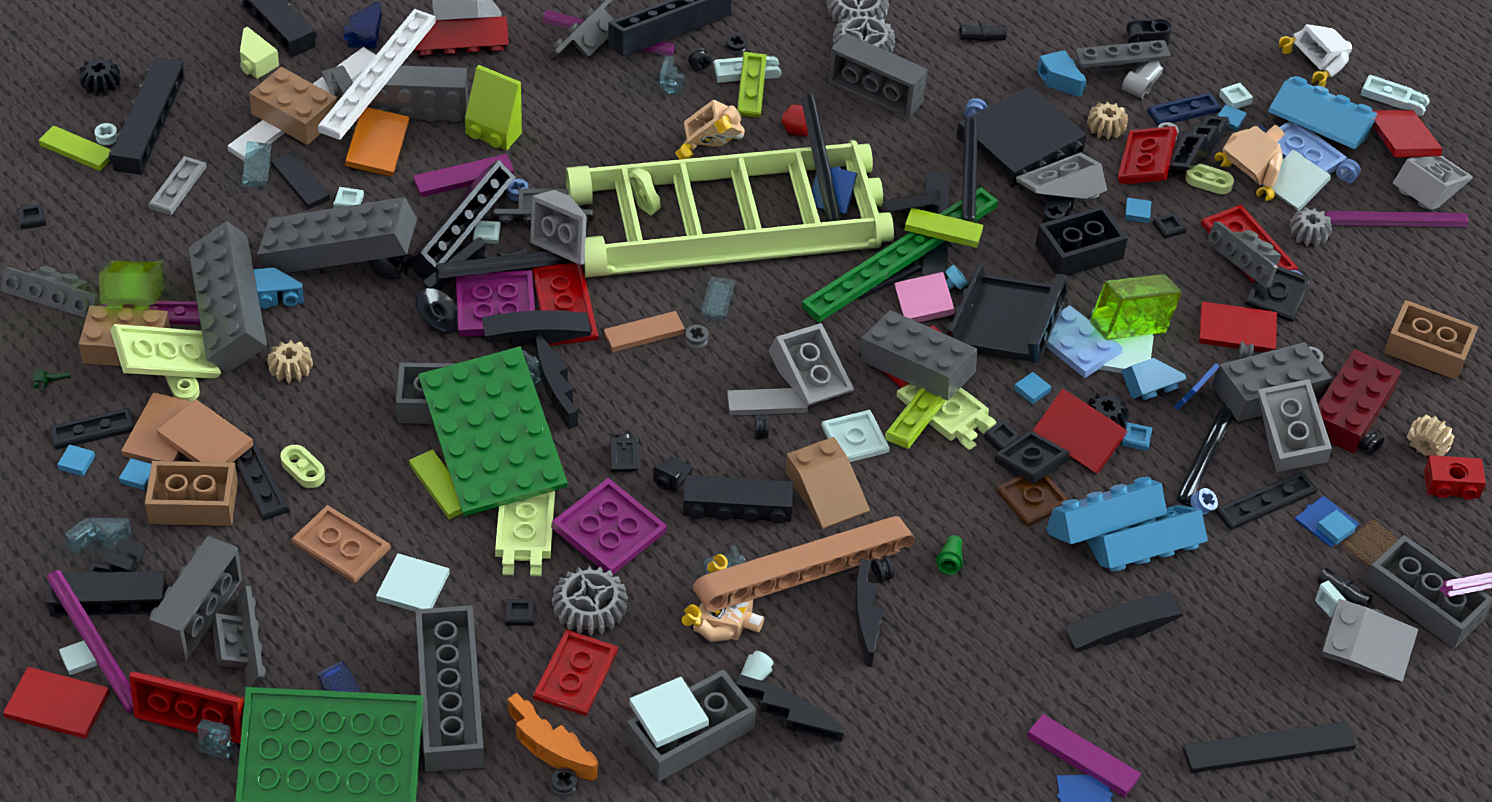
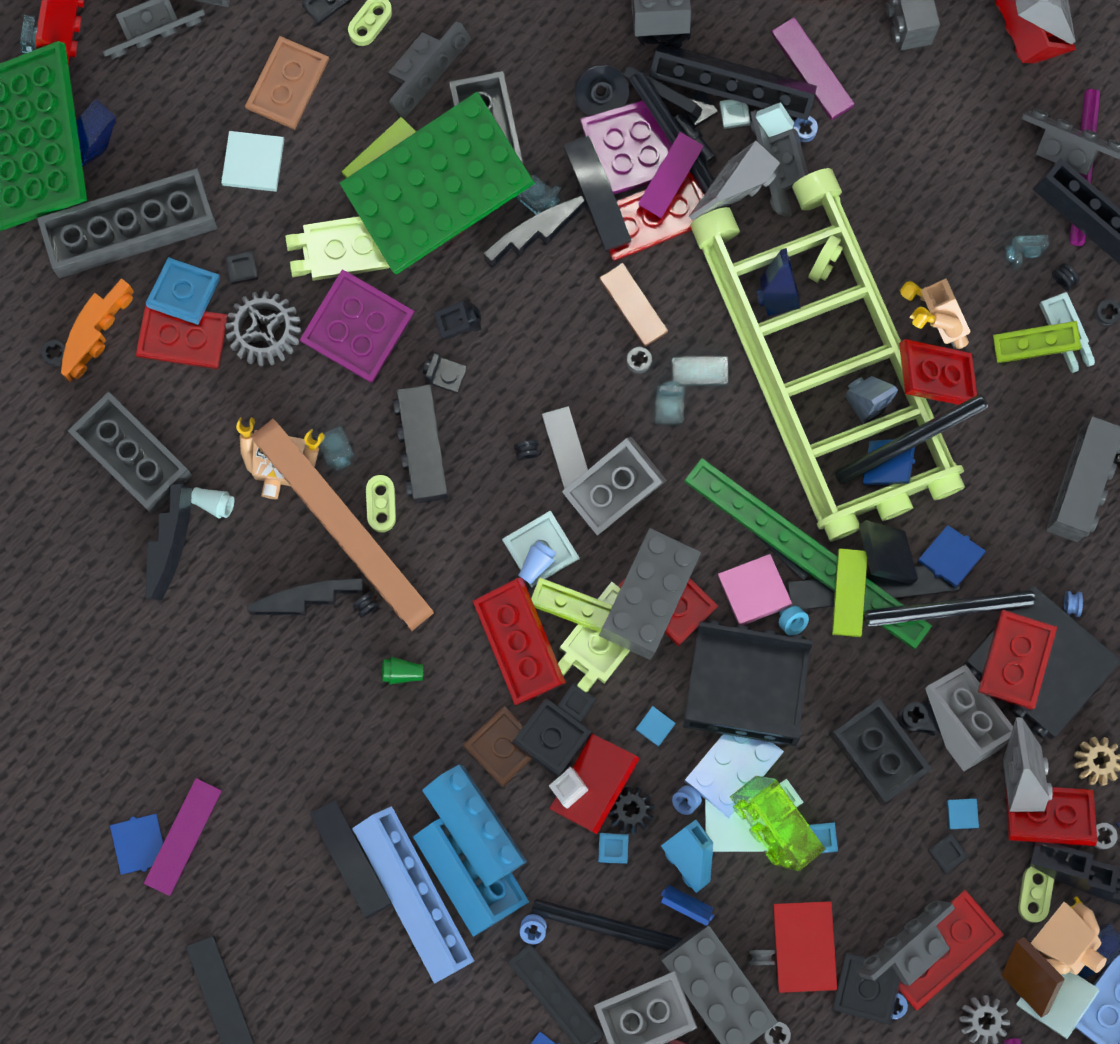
camera: 80 degrees right, 30 degrees up
(360, 436) = (424, 65): none -> dark grey bracket
(494, 109) = (893, 72): lime slope -> none
(507, 196) = (774, 119): none -> light aqua tile
(531, 660) = (183, 291): none -> dark azure tile
(536, 272) = (670, 175): none -> magenta tile
(658, 218) = (779, 286): none -> clear blue slope
(669, 712) = (121, 427): light aqua tile -> none
(742, 323) = (669, 404): none -> clear light blue bracket
(765, 140) = (937, 372): none -> red tile
(776, 182) = (870, 397): none -> sand blue slope
(785, 538) = (380, 503): none -> yellowish green plate
(794, 121) = (999, 407): red head -> none
(826, 482) = (463, 530): medium nougat slope -> none
(868, 430) = (536, 562): none -> light blue cone
(921, 171) = (952, 556): none -> blue piece
(940, 460) = (518, 641): none -> red tile
(1019, 140) = (1017, 659): none -> red tile
(1081, 449) = (568, 787): none -> white tile
(1095, 373) = (681, 804): none -> medium blue bush
(1113, 146) = (1025, 771): none -> light grey slope
(1172, 574) = (413, 894): none -> light blue brick
(1281, 181) = (1032, 977): none -> reddish brown tile

